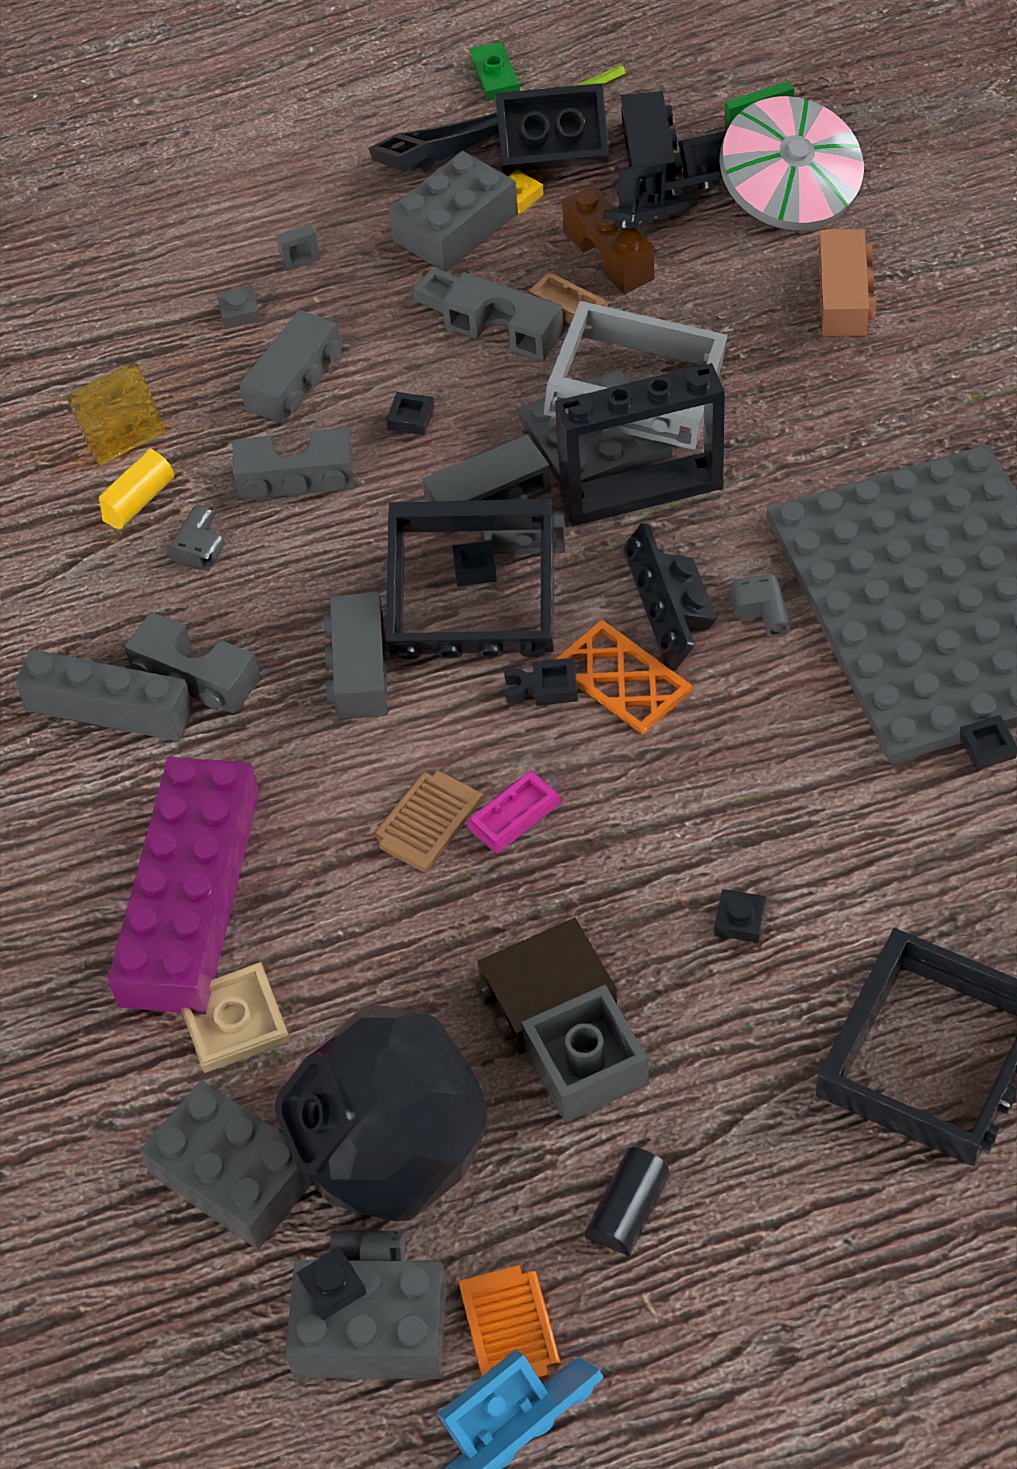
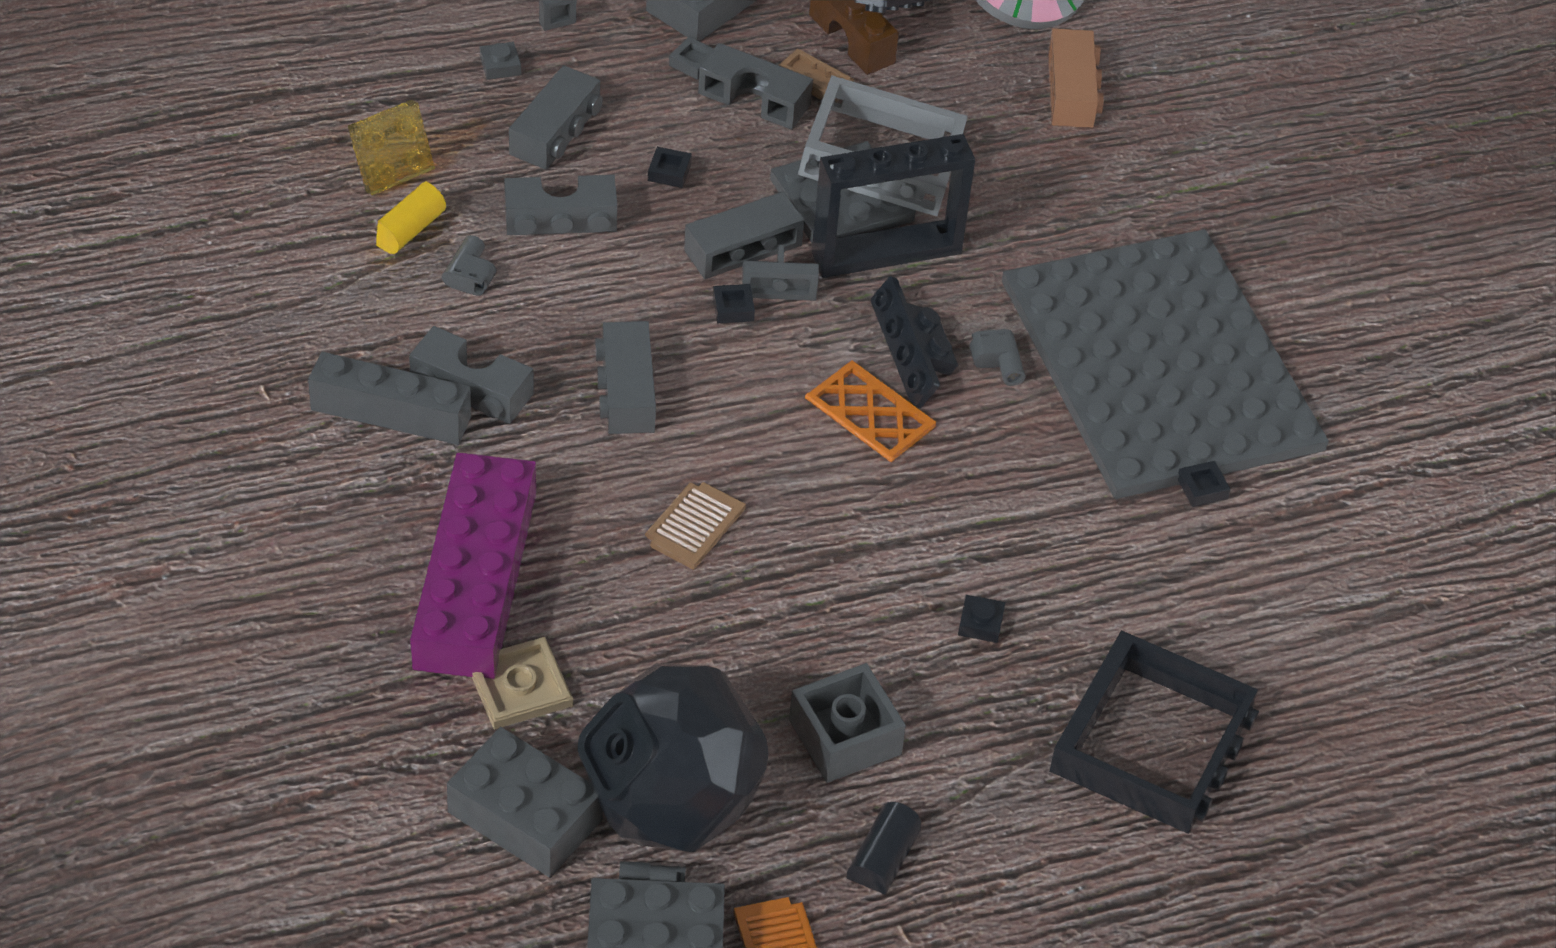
camera: 10 degrees left, 5 degrees down
(331, 1283) = (628, 894): black plate -> none
(468, 516) = (736, 259): black window -> none
(513, 812) = (775, 520): dark pink plate -> none
(539, 977) = (800, 657): dark brown brick -> none
(549, 682) = (806, 411): black plate -> none

